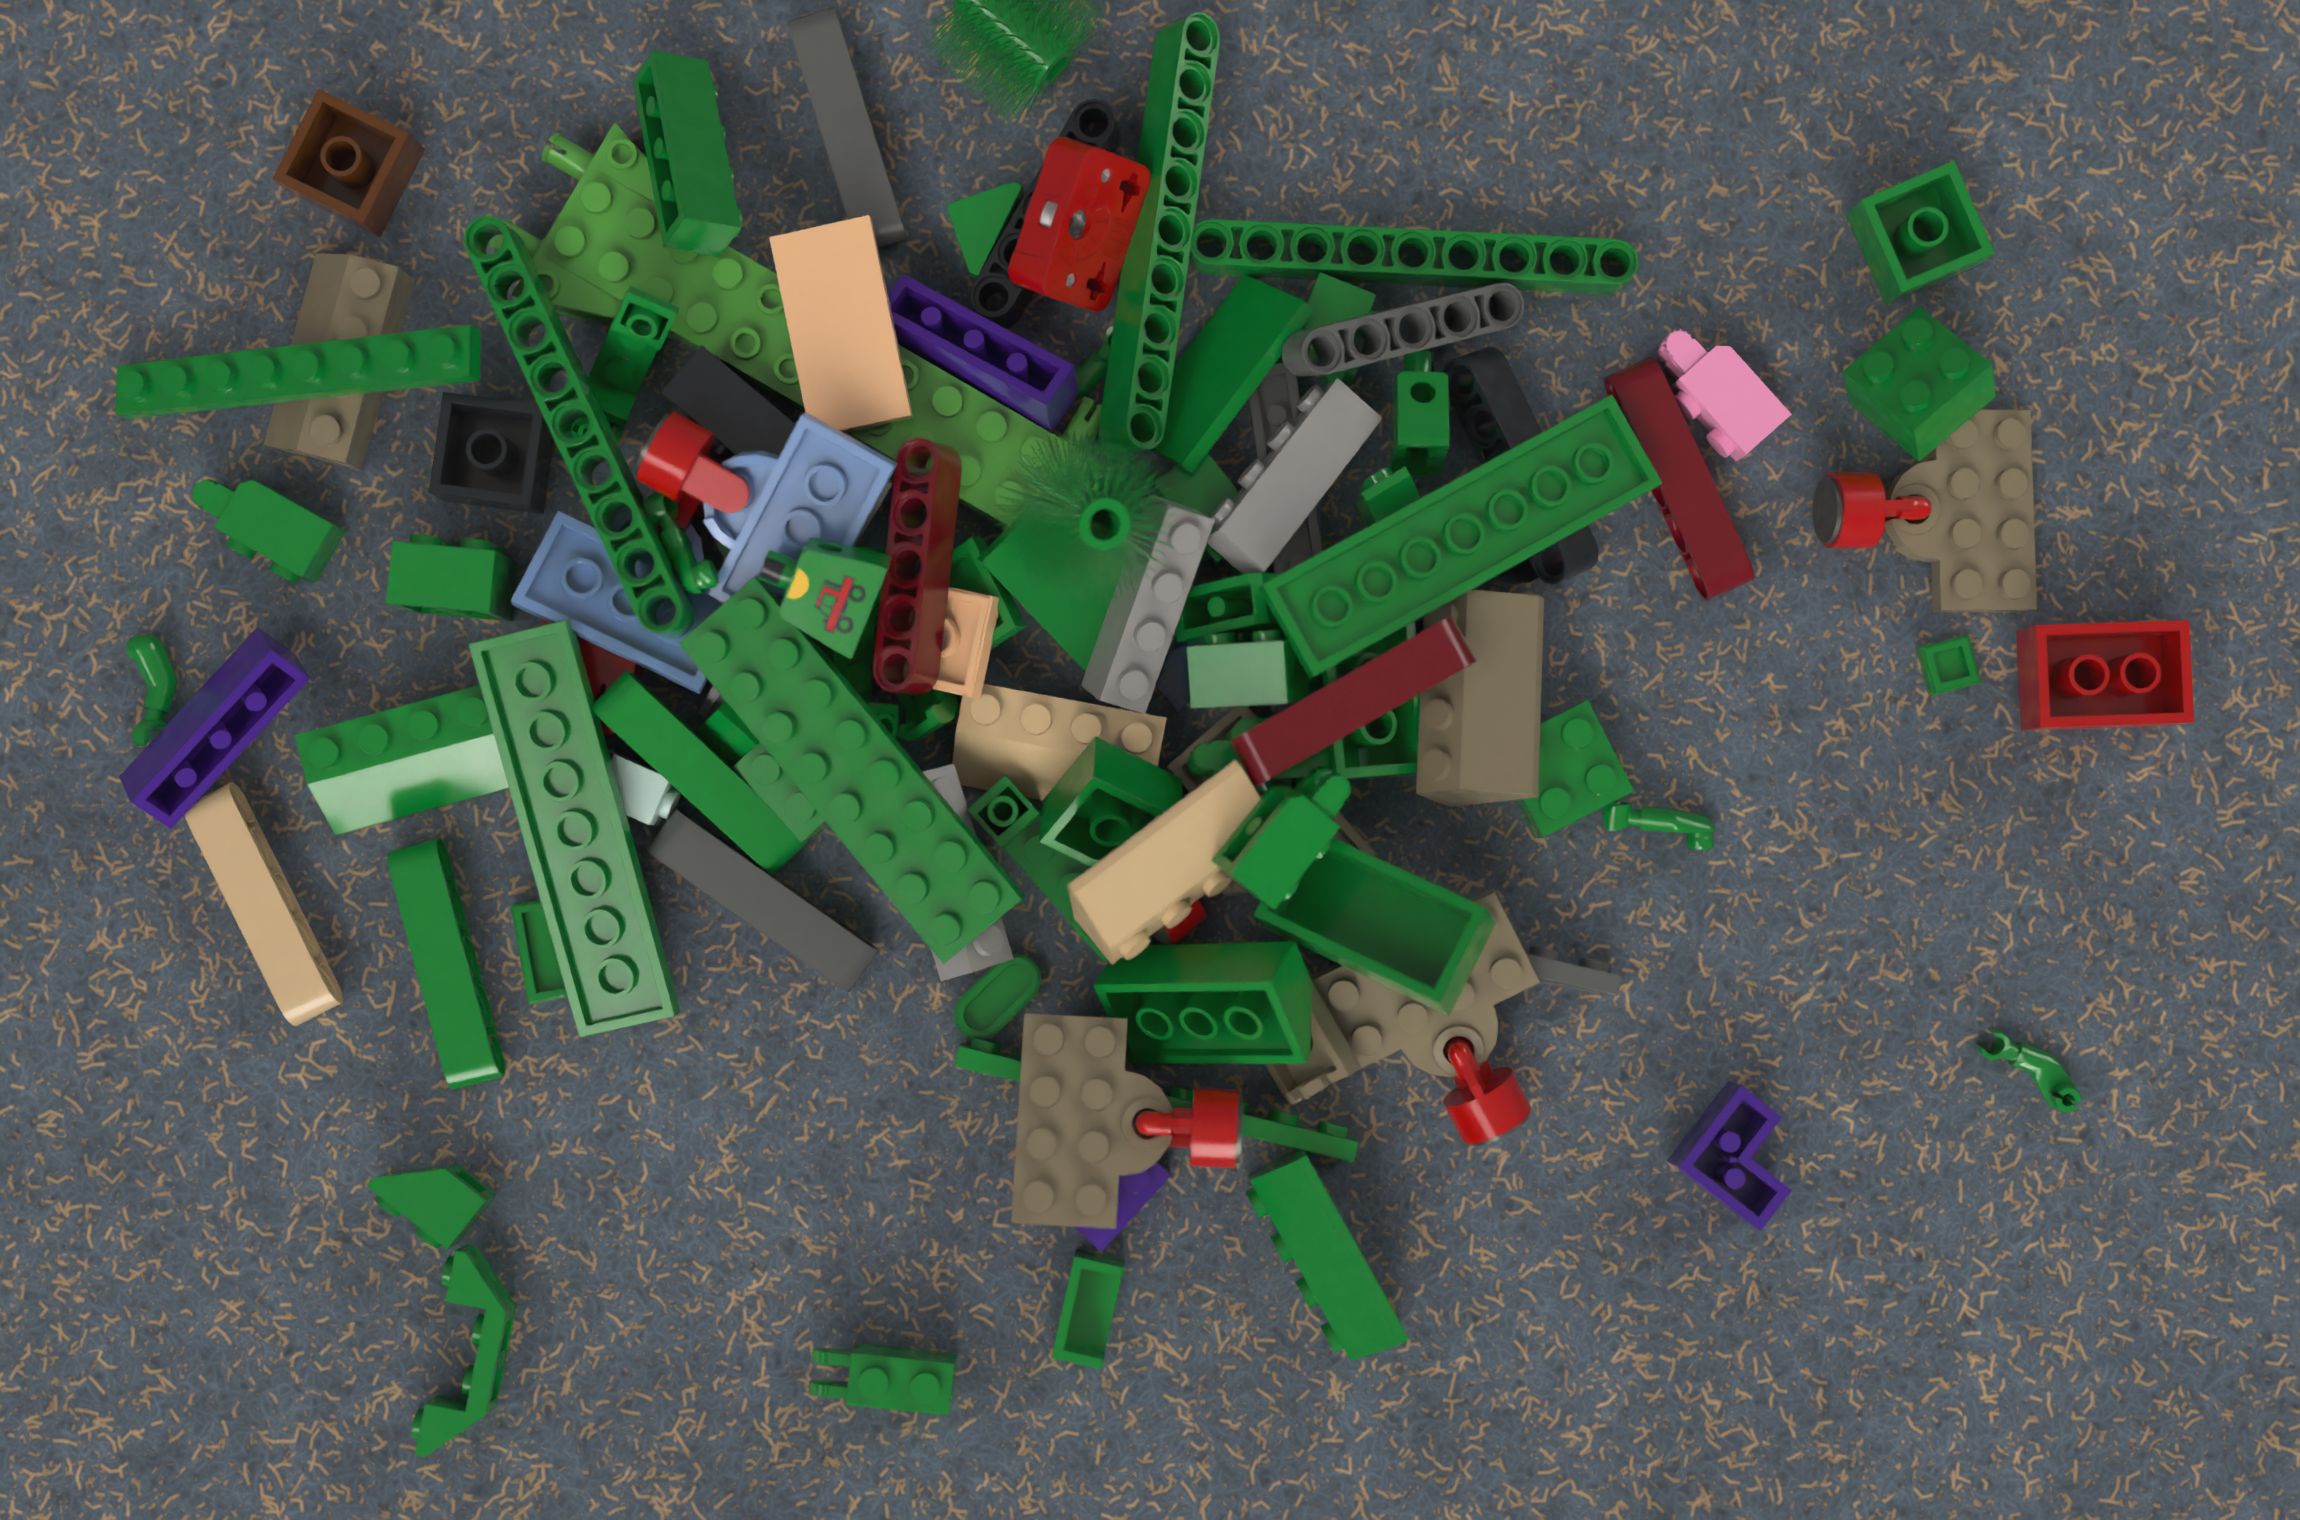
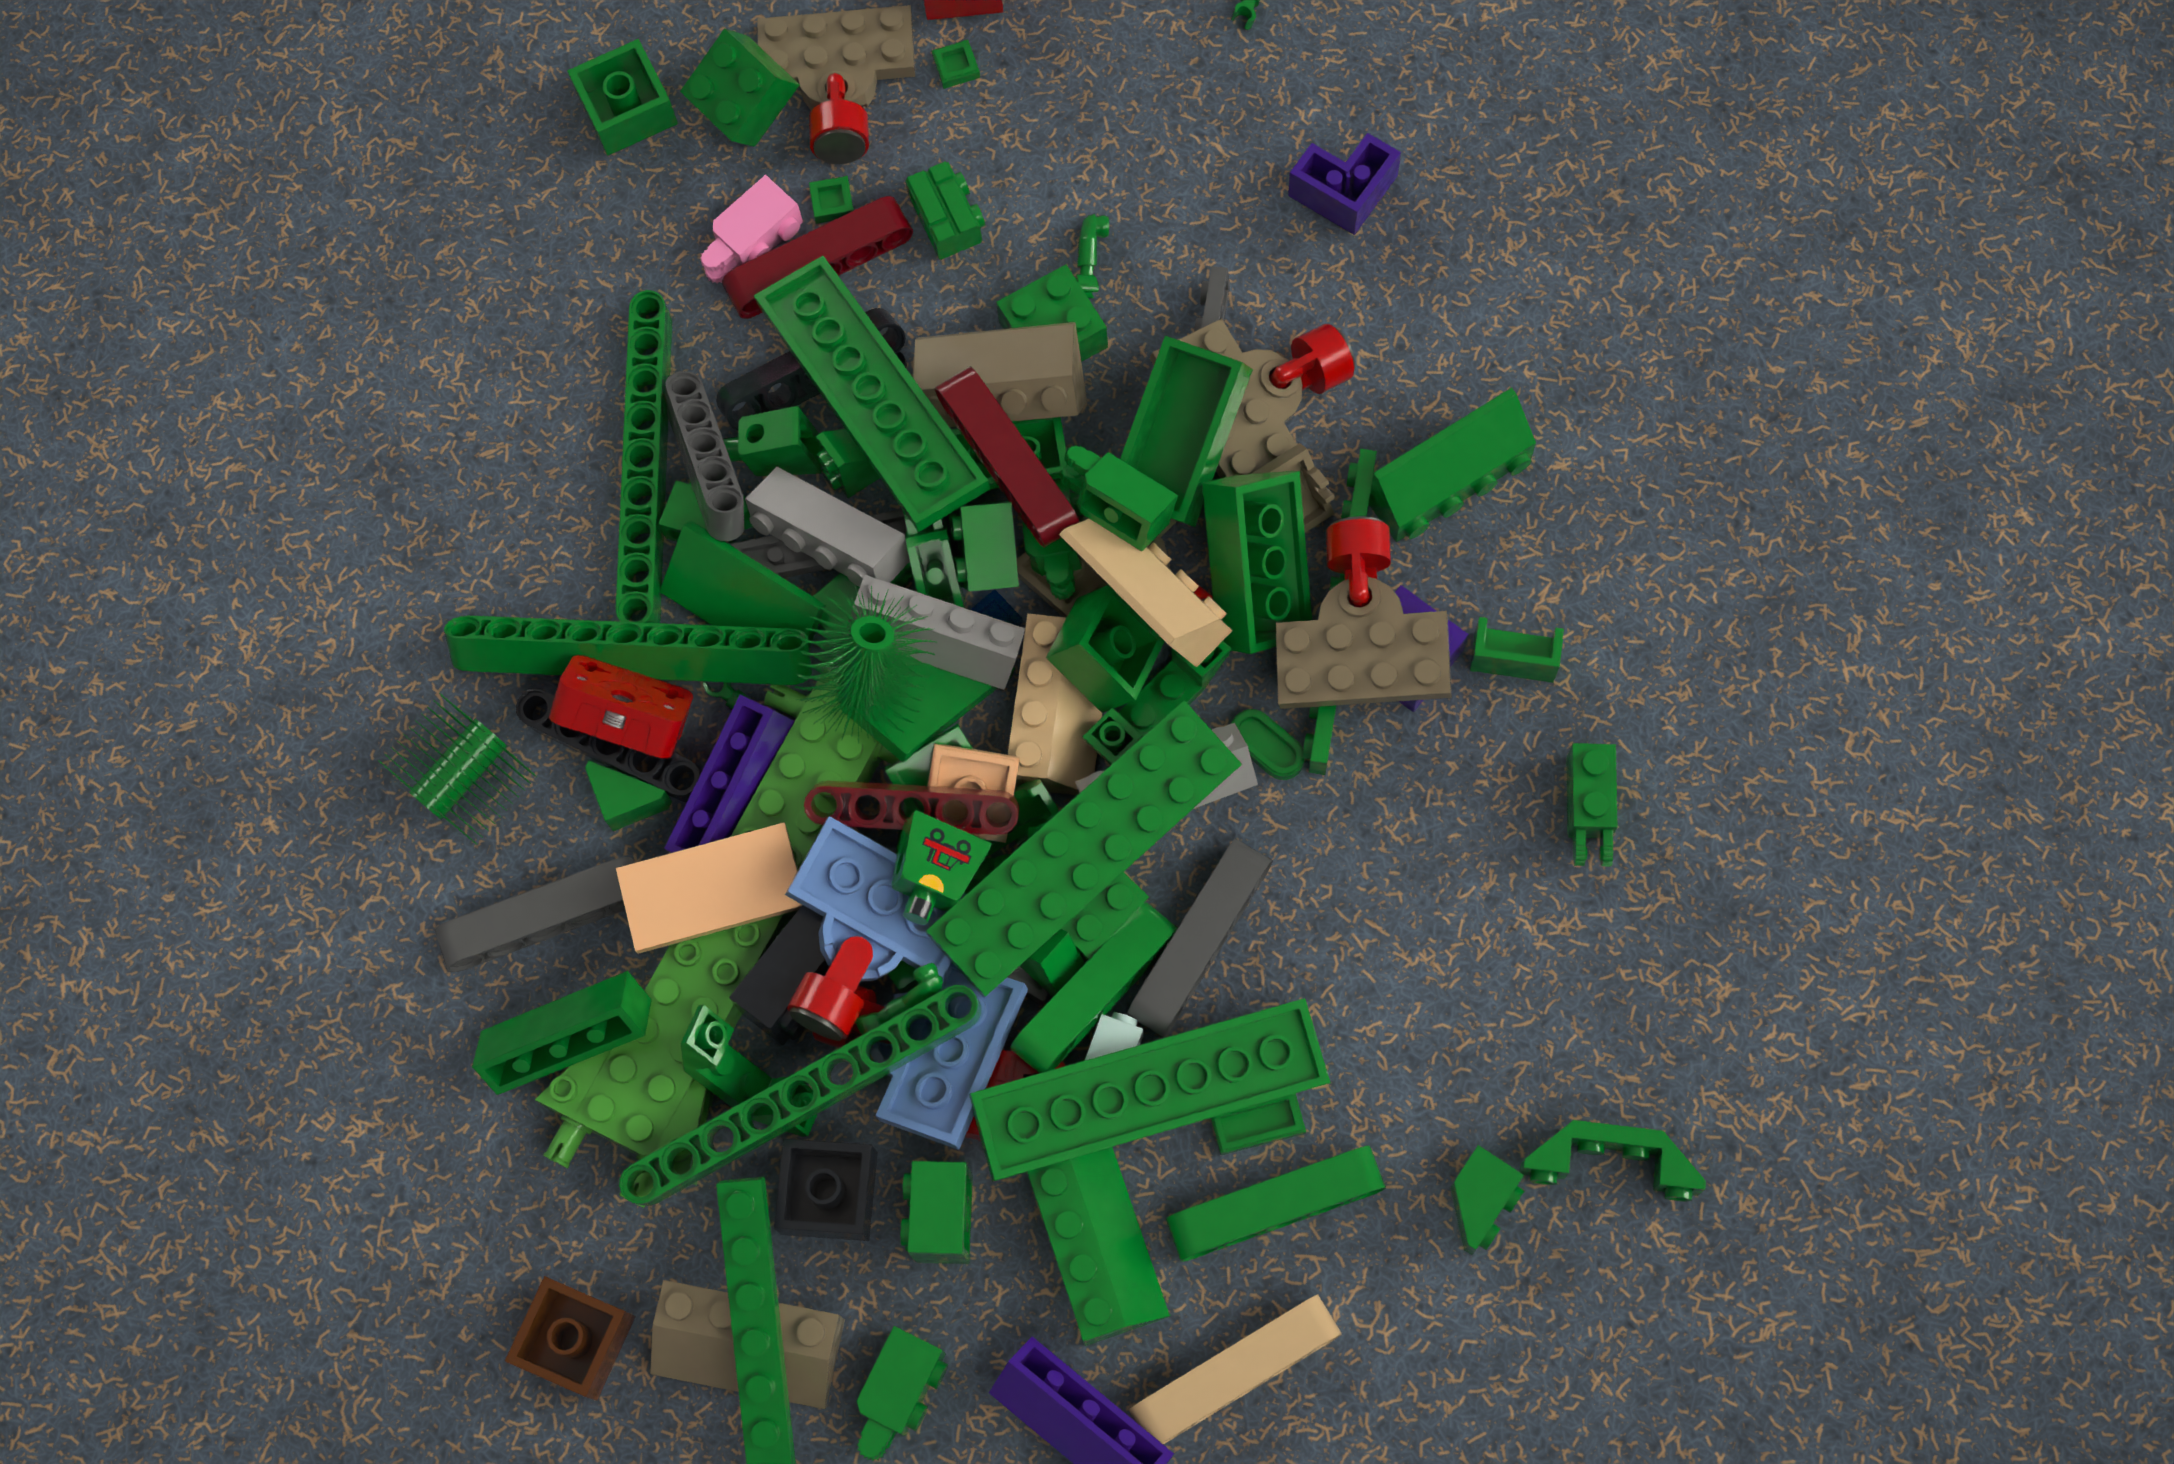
camera: 85 degrees left, 15 degrees down
(1733, 641) = (944, 209): none -> green brick
(1762, 498) = (831, 199): none -> green tile

